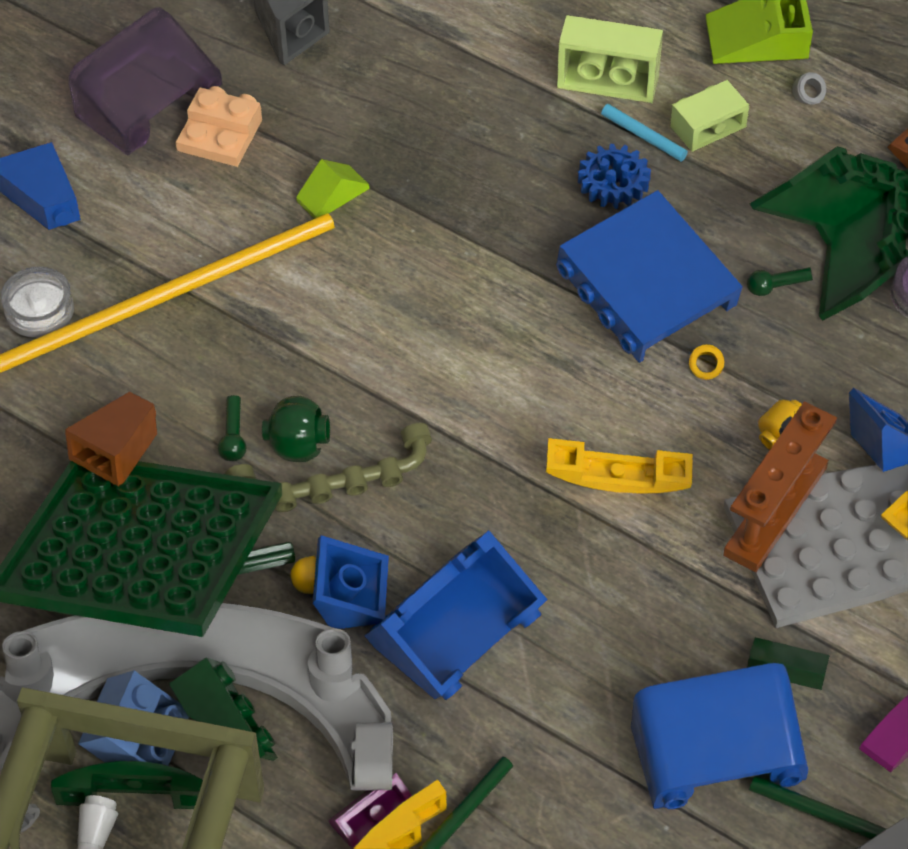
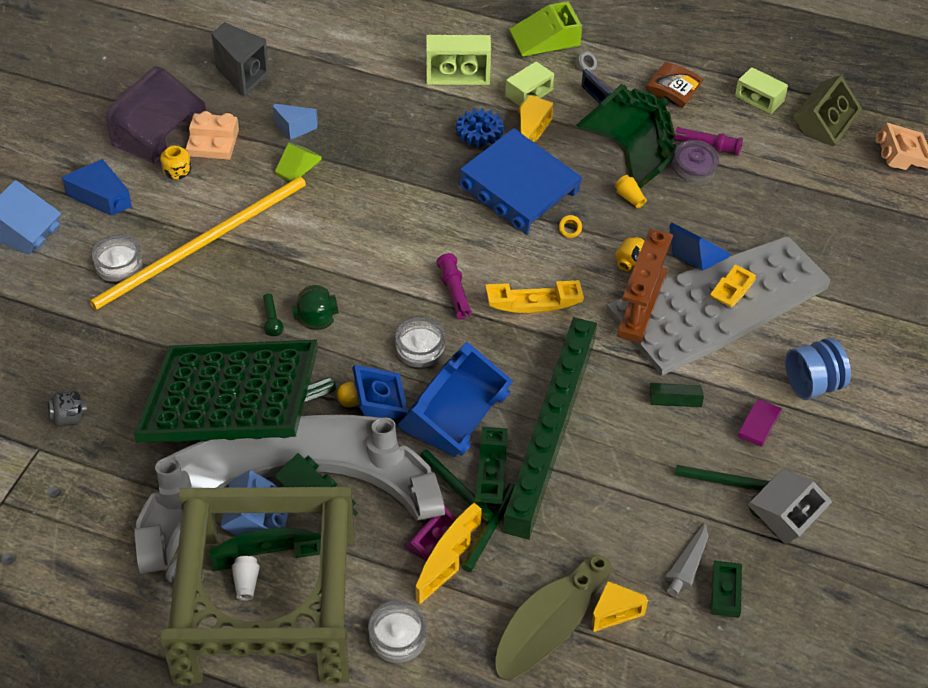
camera: 15 degrees left, 5 degrees down
(113, 437) = (193, 331): dark orange slope -> none
(154, 163) = (175, 162): none -> yellow head
(344, 119) = (295, 120): none -> medium blue slope
(353, 478) = (362, 331): olive bar -> none
(425, 744) = (455, 483): none -> dark green bar
(431, 511) = (420, 342): none -> clear piece
(483, 726) = (491, 465): none -> dark green slope
(507, 415) = (452, 278): none -> magenta pin
(583, 682) = (549, 430): none -> dark green brick
(644, 132) = (489, 101): medium azure bar -> none
(699, 175) = (535, 117): none -> yellow slope
(717, 732) = (646, 440): blue windscreen -> none
(762, 282) = (591, 176): dark green bar -> none
(812, 134) = (594, 86): none -> dark blue slope
(813, 318) = (629, 190): none -> yellow cone

